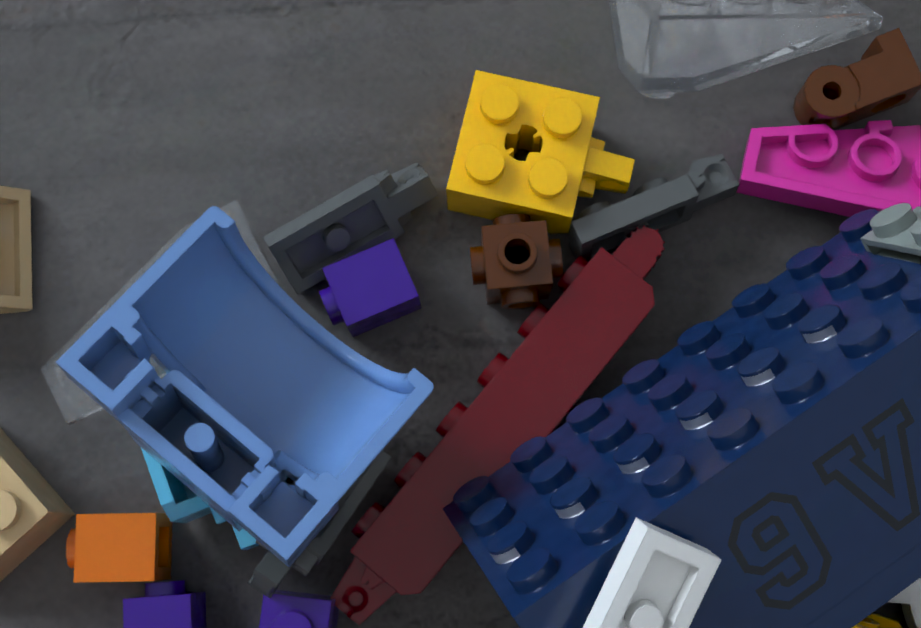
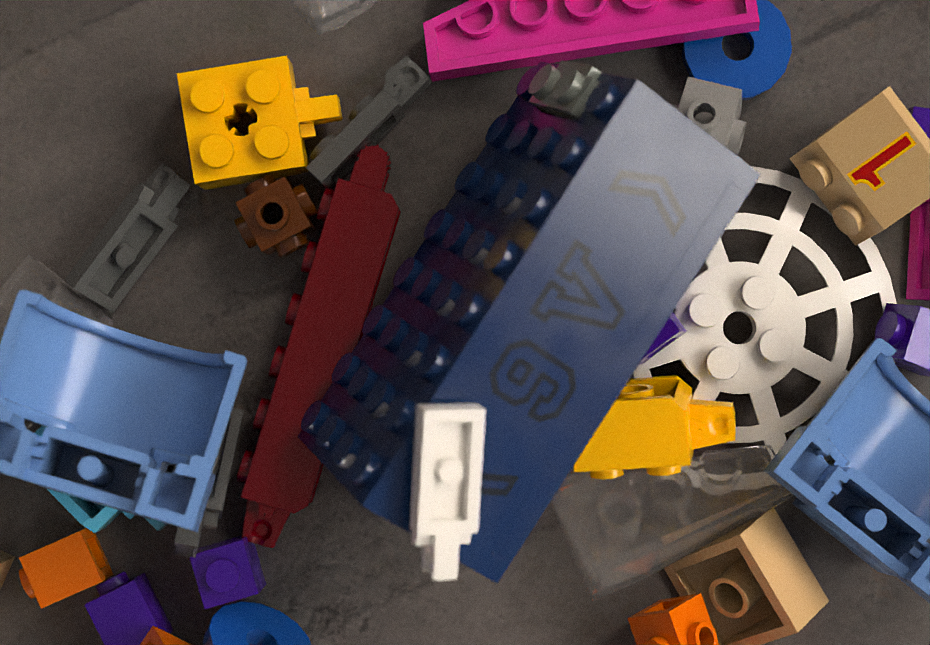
camera: 25 degrees left, 10 degrees up
(369, 289) = (168, 285): dark purple brick -> none

